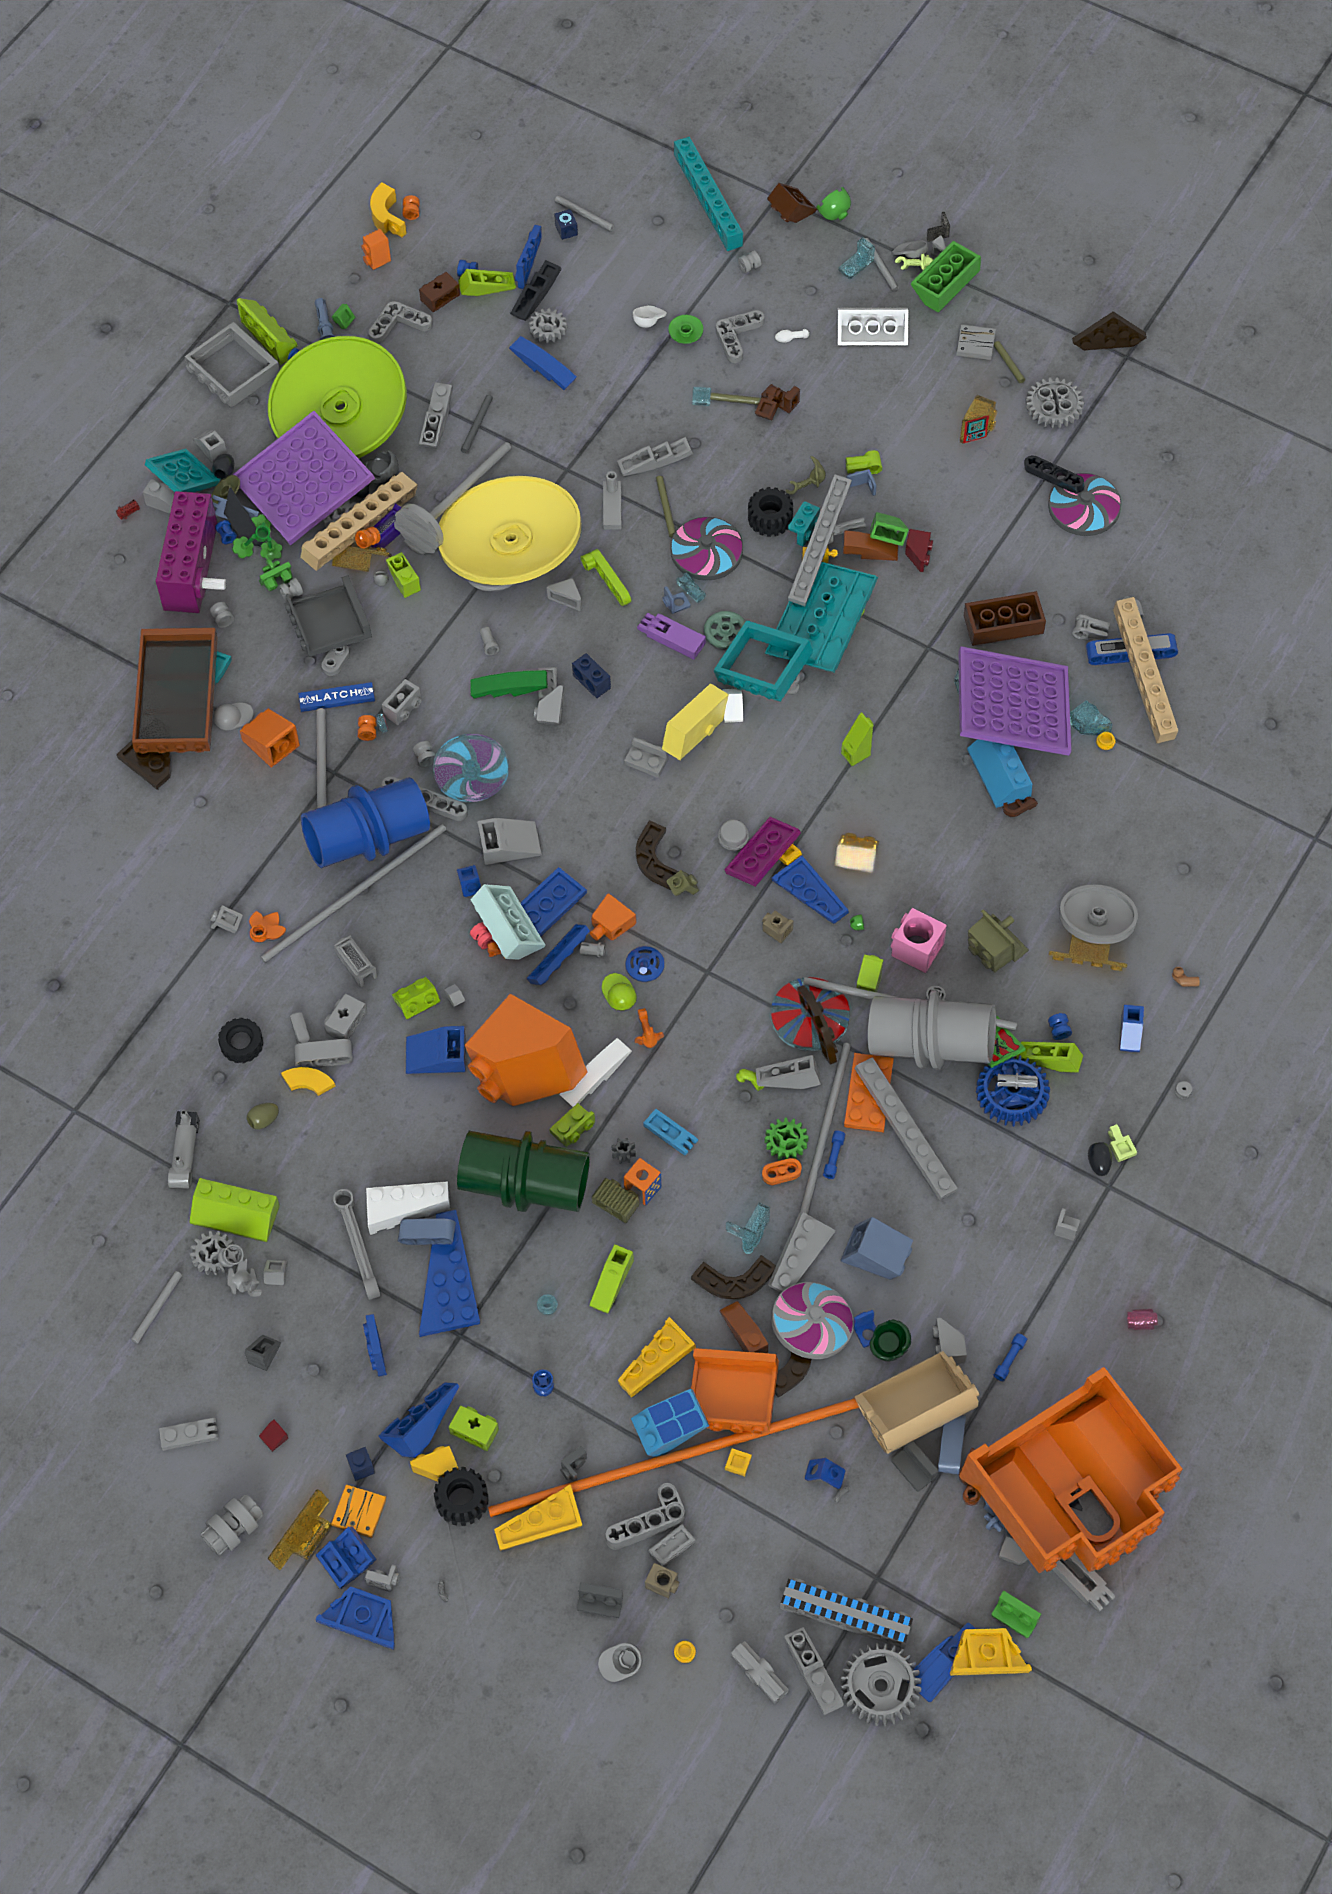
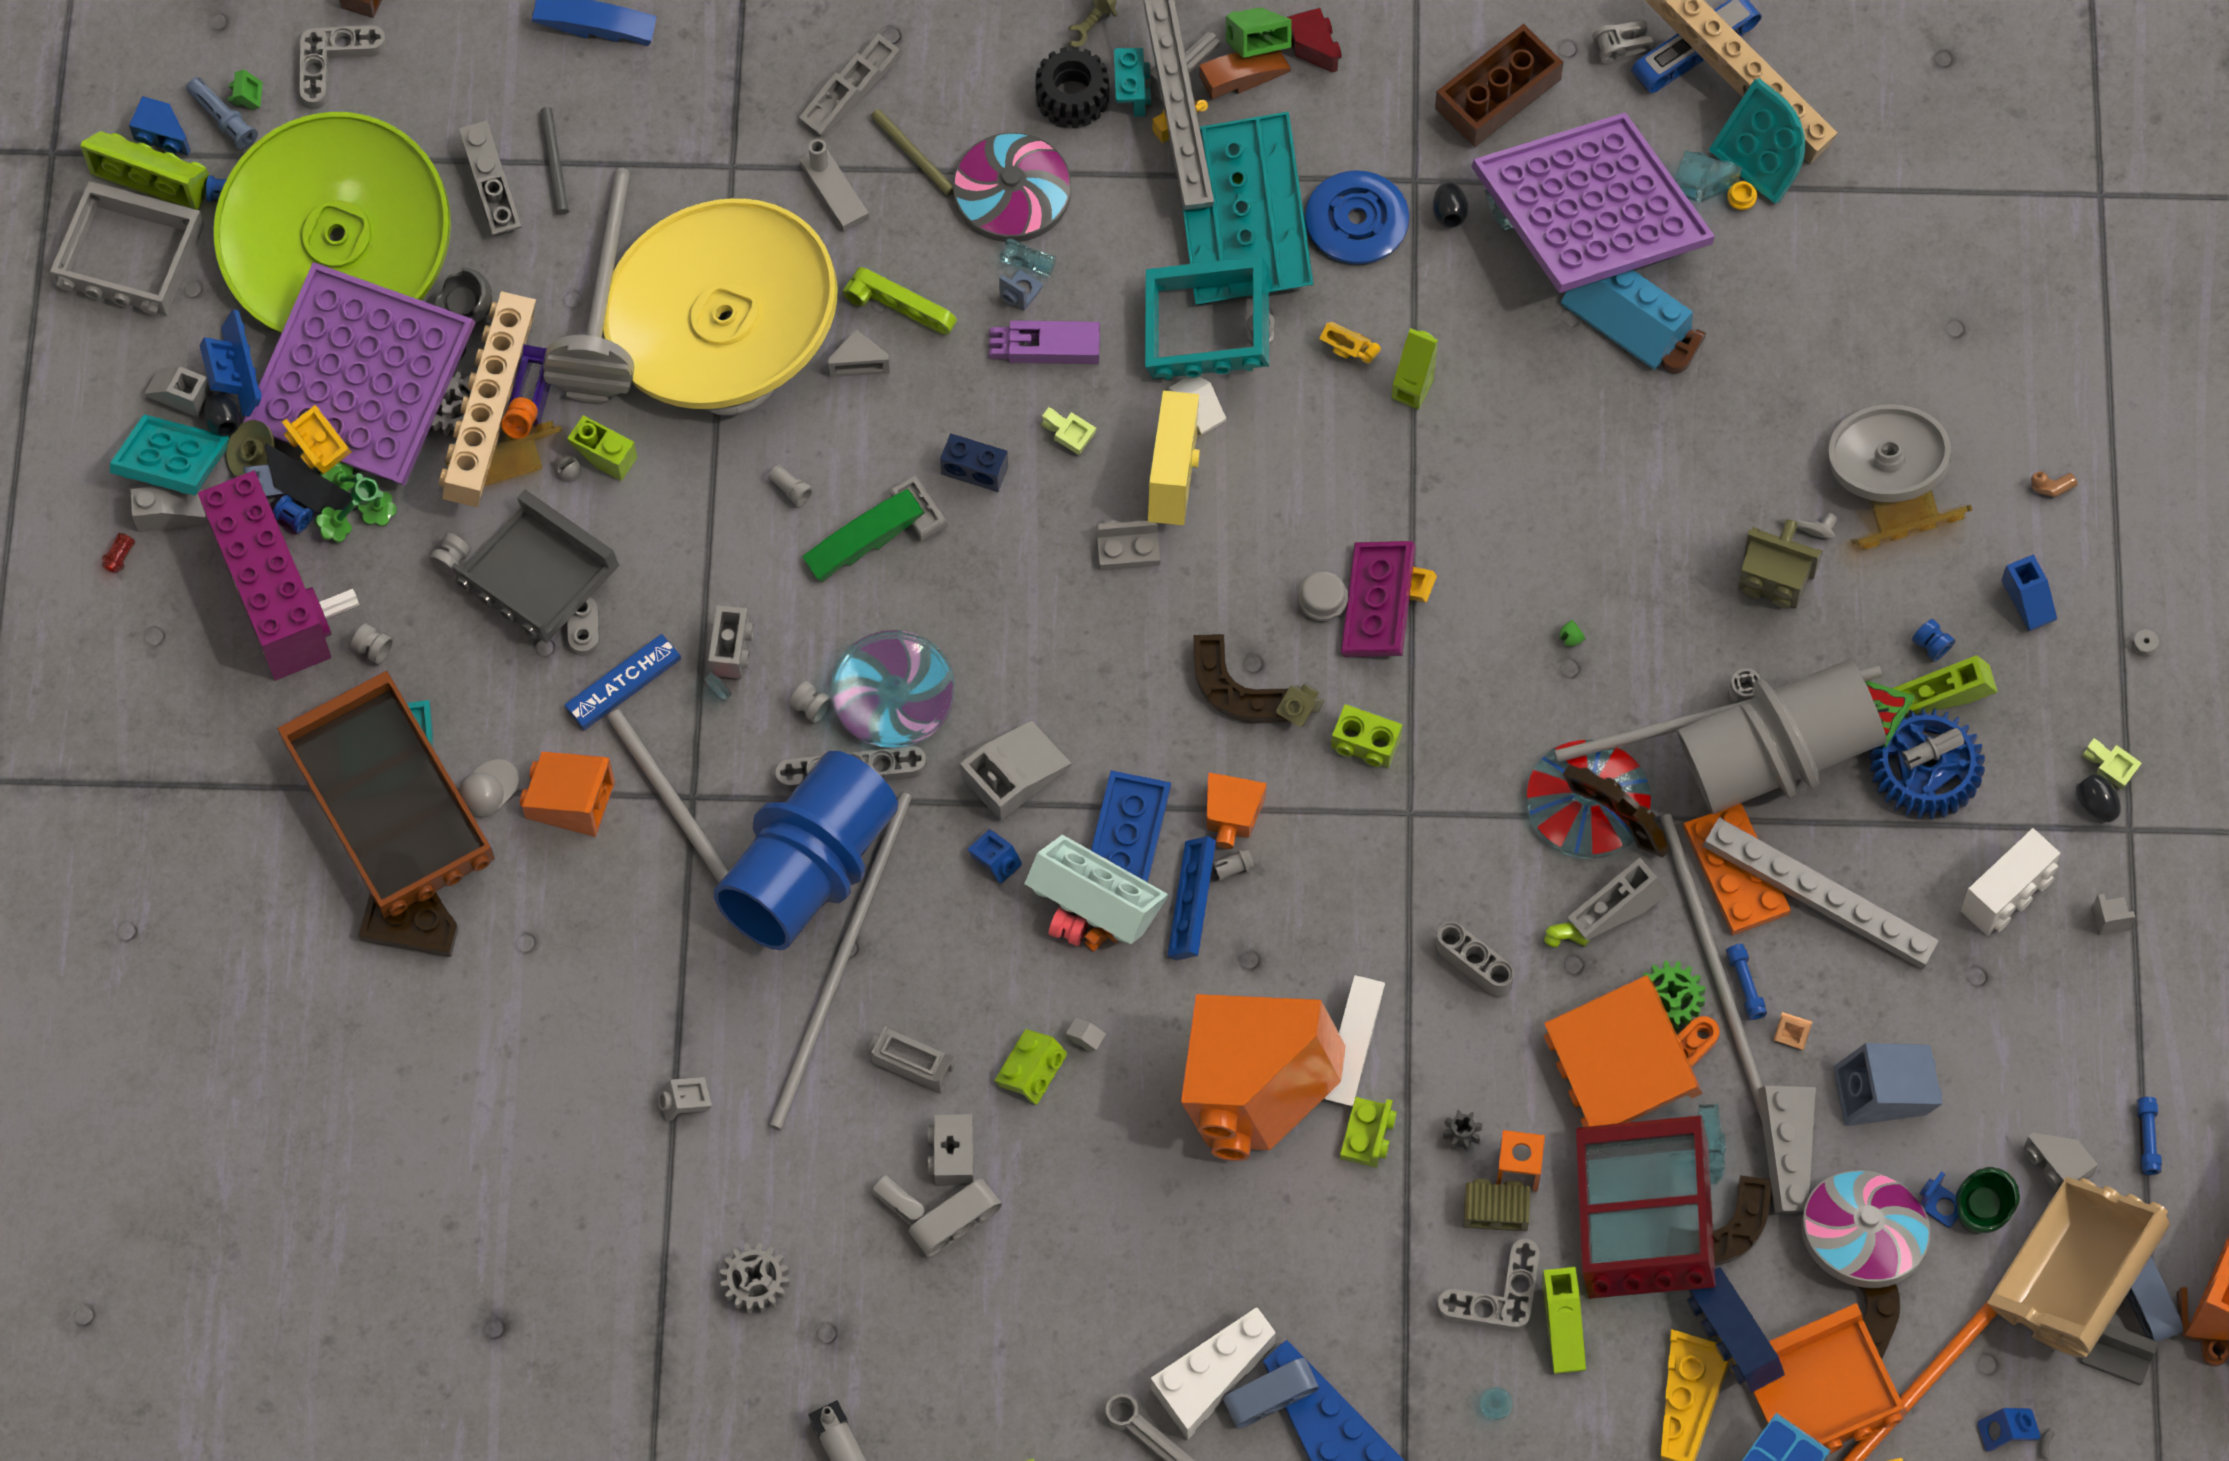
camera: 30 degrees left, 5 degrees up
(205, 1022) = (764, 1286): none -> light grey gear
(241, 442) = (230, 364): none -> blue bracket
(247, 1053) = (818, 1238): black tyre -> none
(258, 499) = (317, 439): none -> yellow bracket
(262, 1115) = (929, 1353): olive animal -> none
(267, 925) = (747, 1074): orange plate -> none
(268, 578) = (406, 554): bright green hips -> none
(288, 313) = (158, 126): none -> blue slope
(308, 1078) = (955, 1265): yellow tile -> none
(367, 727) = (700, 705): orange wheel -> none
(437, 1051) = (1114, 1128): blue slope -> none
(523, 1171) = (1360, 1235): dark green piece -> none
(550, 707) = (949, 540): light grey slope -> none
(584, 1254) = (1500, 1305): none -> light grey beam
(618, 991) = (1306, 907): lime cap -> none
(644, 964) = (1318, 848): blue dish -> none
(649, 1037) = (1396, 951): orange piece -> none
(653, 685) = (1071, 432): none -> yellowish green plate
(670, 1131) = (1508, 1069): dark azure hinge -> none
(690, 1072) = (1480, 972): none -> light grey beam
(694, 1241) = (1645, 1207): none -> window
(699, 1333) = (1736, 1333): none -> dark blue brick
(712, 916) = (1370, 729): none -> lime brick
(716, 618) = (1099, 312): sand green plate -> none
(734, 1155) = (1621, 1055): none -> orange panel
(744, 1329) = (1783, 1291): dark orange slope -> none
(781, 929) = (1466, 705): dark tan brick -> none
(809, 887) = (1474, 618): blue wing -> none
(834, 712) = (1349, 343): none -> yellow piece
(842, 1193) = (1792, 1031): none -> light nougat slope
(856, 852) = (1509, 533): clear yellow slope -> none
(870, 973) = (1640, 700): lime slope -> none
(888, 666) = (1329, 222): none -> blue piece
(918, 955) = (1678, 593): bright pink brick -> none
(937, 668) = (1450, 205): none -> black animal
(1016, 1176) = (2011, 883): none -> white brick
(1032, 935) = (1816, 529): none -> light grey bar
(1133, 715) = (1763, 140): none -> teal plate

